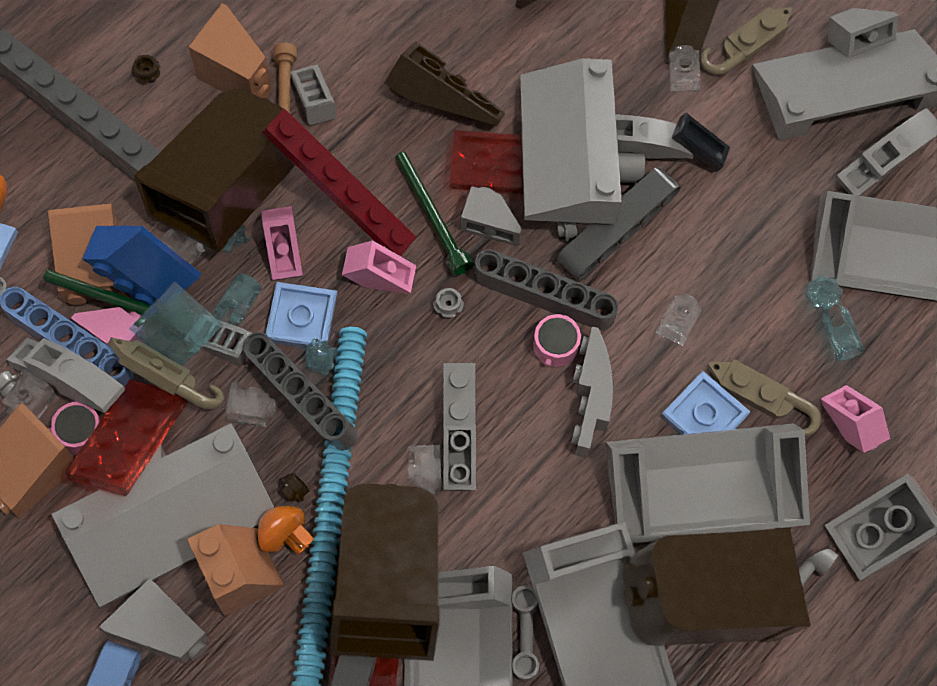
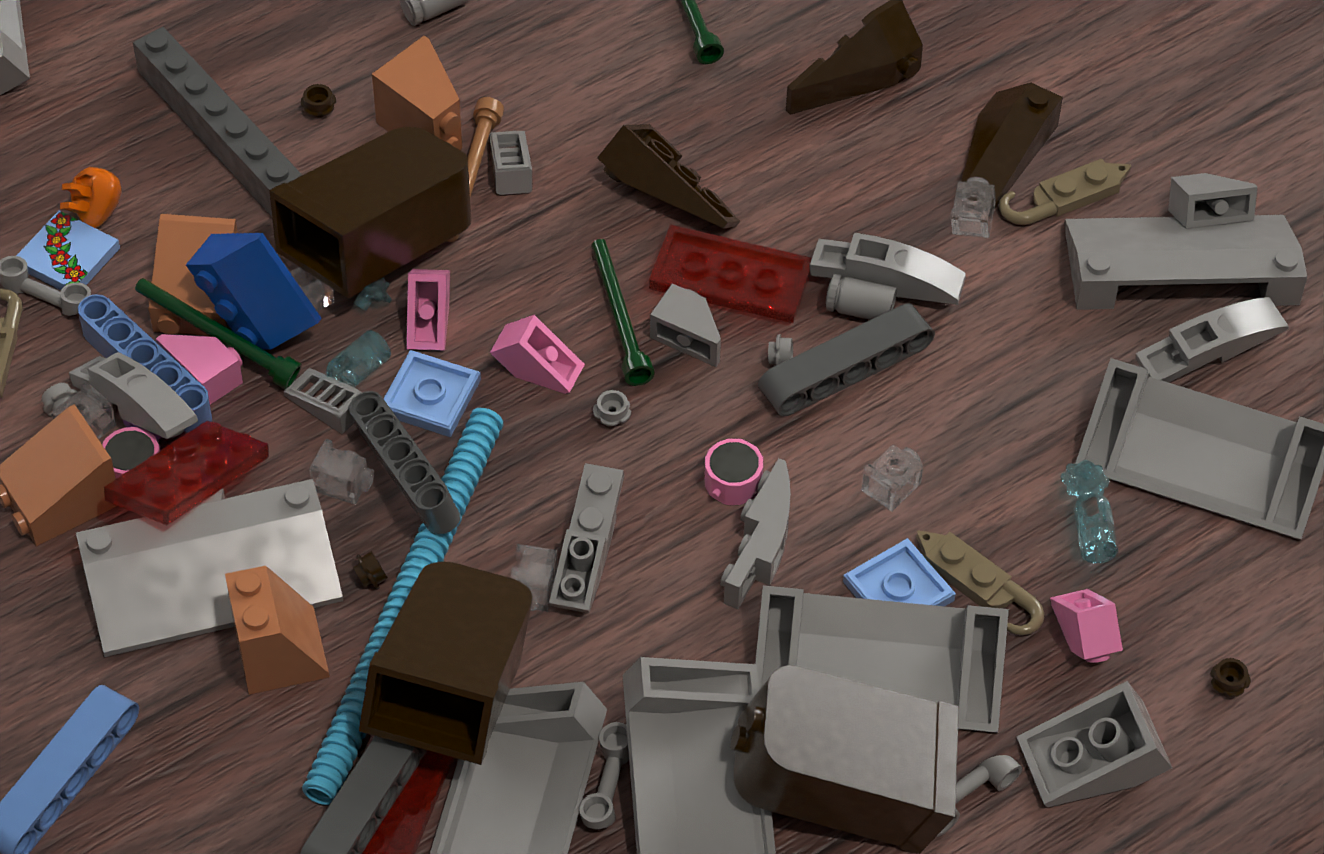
camera: 15 degrees right, 15 degrees down
(156, 625) = (164, 681): light grey slope -> none
(163, 372) = (248, 413): dark tan plate -> none
(175, 325) = (275, 365): clear light blue slope -> none
(283, 526) = (344, 605): orange piece -> none
(320, 356) = (440, 436): clear light blue plant -> none
(338, 183) = (510, 247): dark red plate -> none
(536, 277) = (734, 413): dark grey beam -> none
(570, 143) = (805, 258): light grey slope -> none
(701, 142) = (972, 287): black tile -> none

